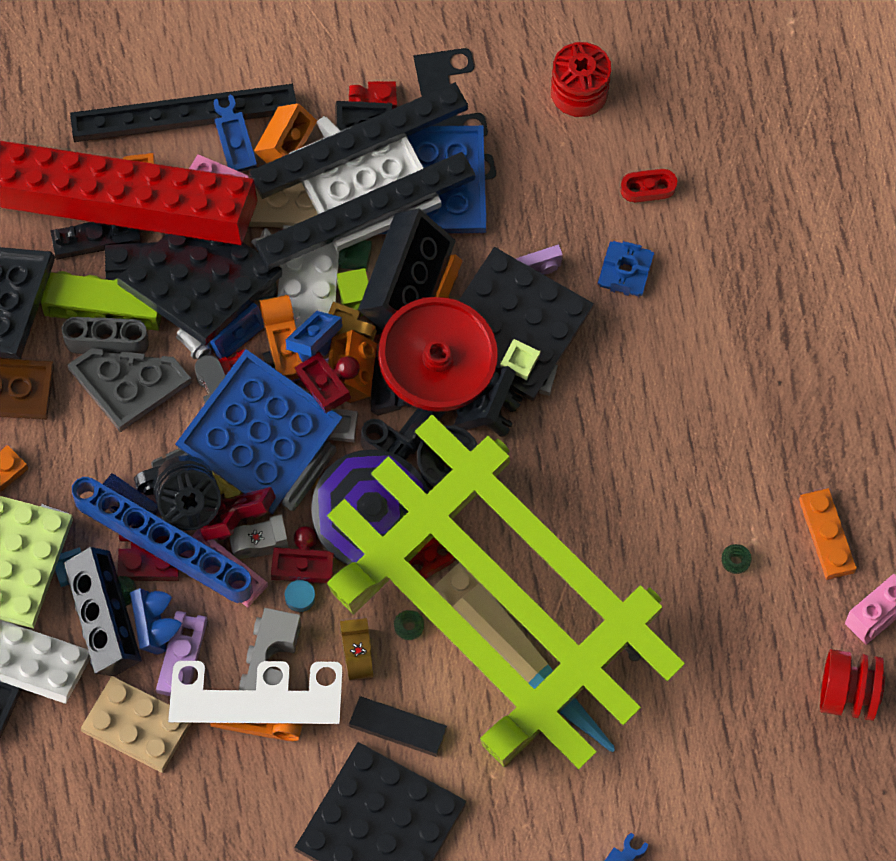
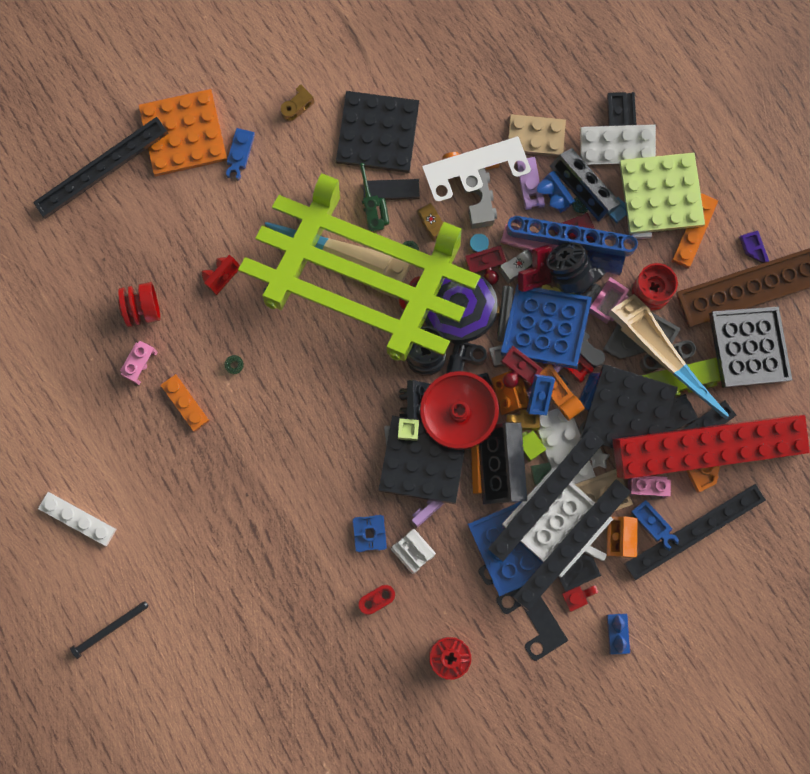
camera: 155 degrees right, 15 degrees up
(65, 417) = (657, 278): none -> red wheel
(124, 367) = (643, 329): none -> tan plate
(149, 439) = (610, 296): none -> bright pink window
(345, 37) = (618, 634): none -> blue tile
(440, 708) = (370, 204): none -> dark green piece
(574, 226) = (413, 551): none -> white piece
(724, 691) = (217, 279): none -> red tile

